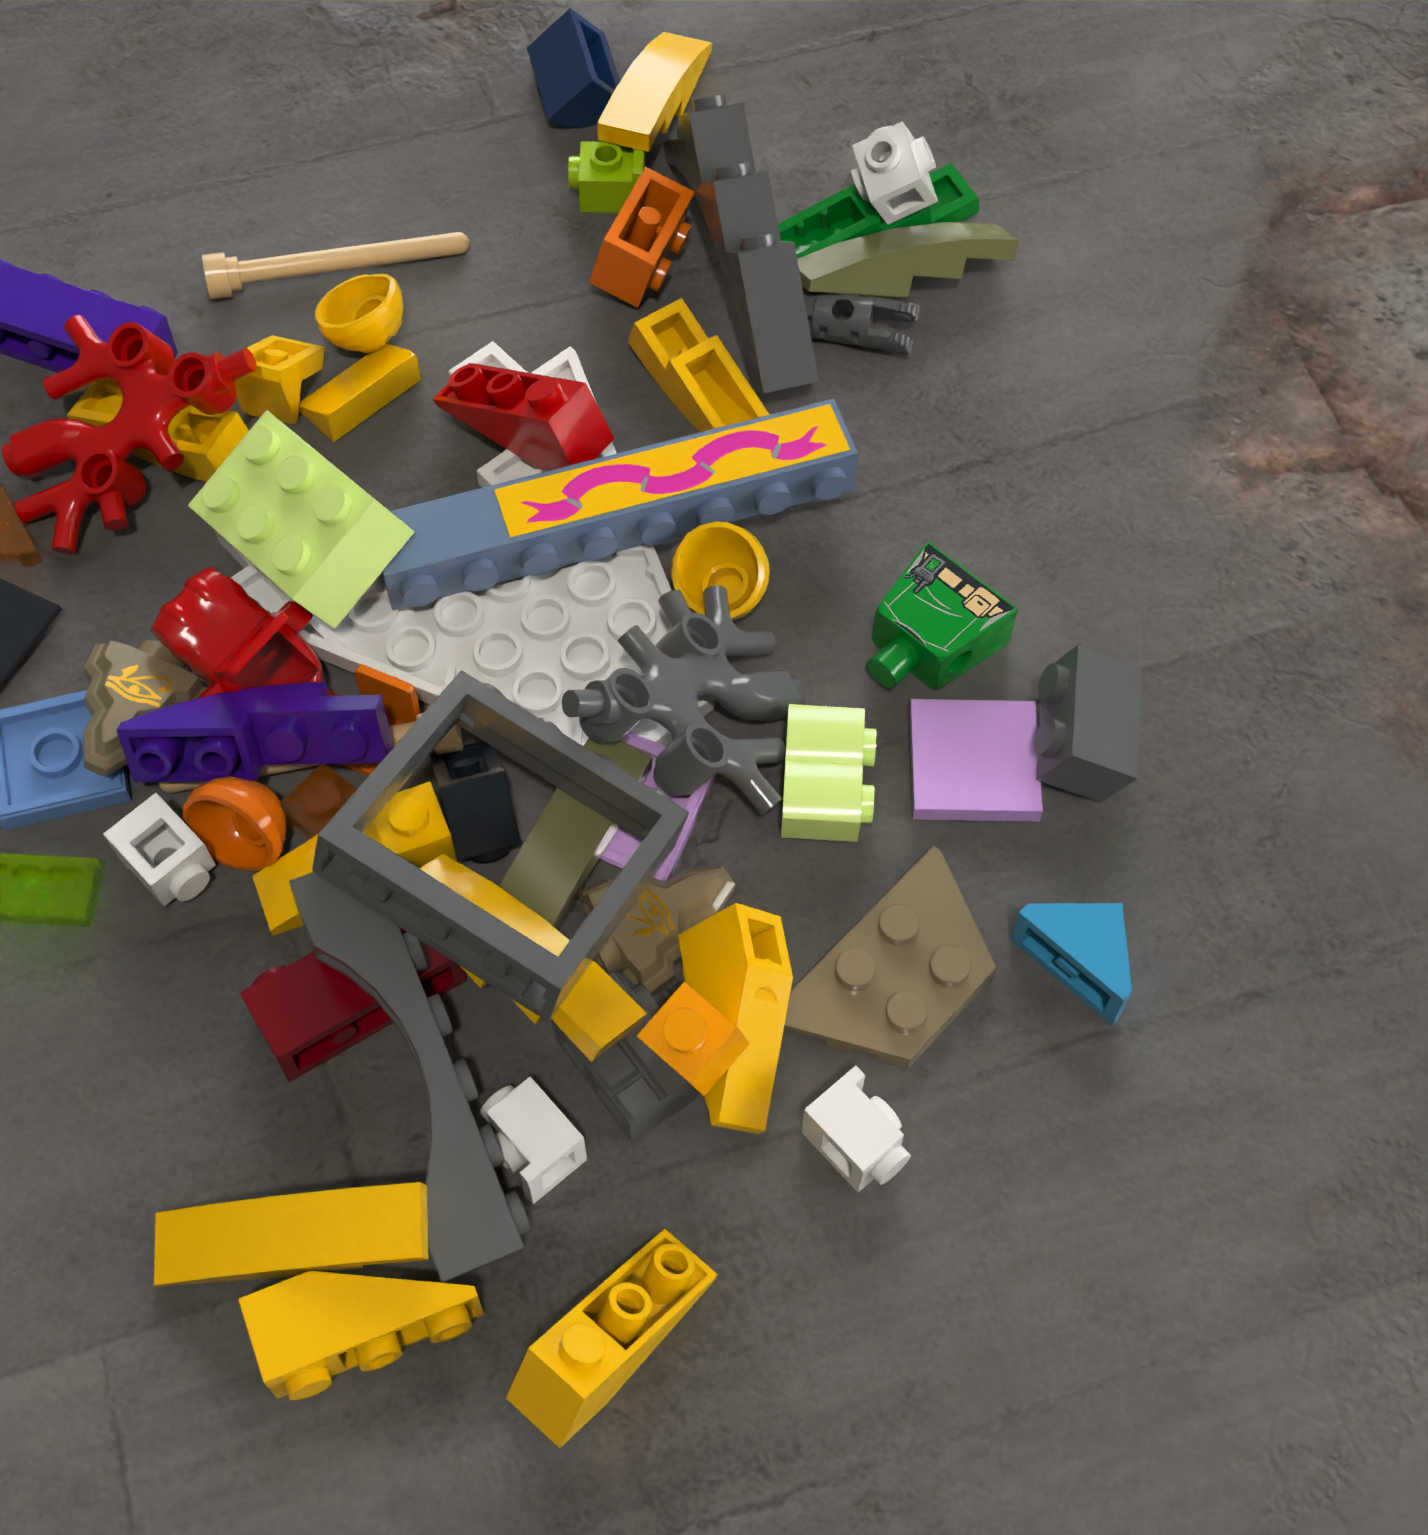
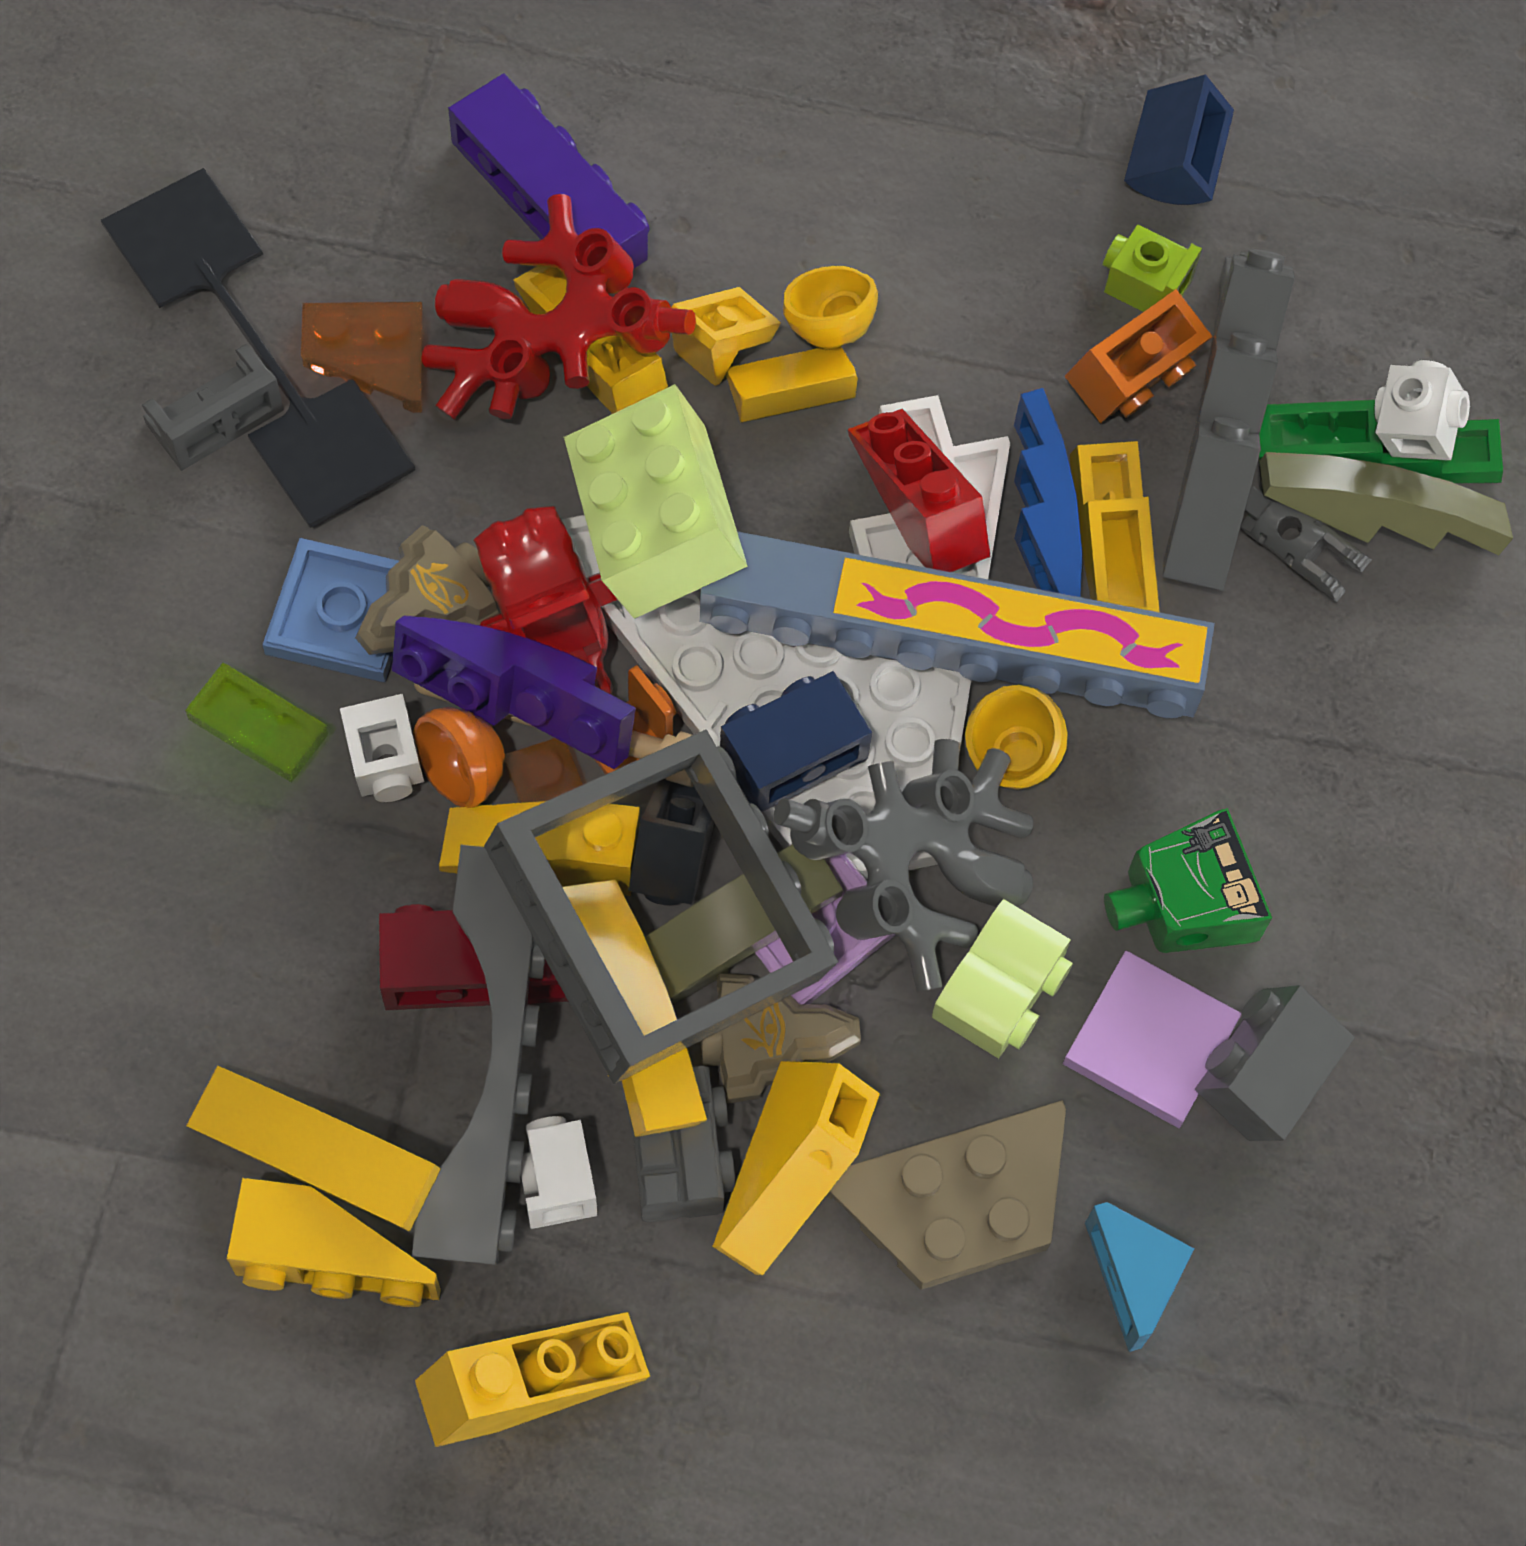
camera: 25 degrees right, 5 degrees up
(227, 274) = (731, 203): tan piece -> none
(540, 652) = (795, 740): none -> dark blue brick
(647, 398) = (1050, 521): none -> blue slope
(653, 91) = (1244, 200): yellow slope -> none
(694, 1038) = (729, 1166): light orange brick -> none
(856, 1132) = (836, 1321): white brick -> none

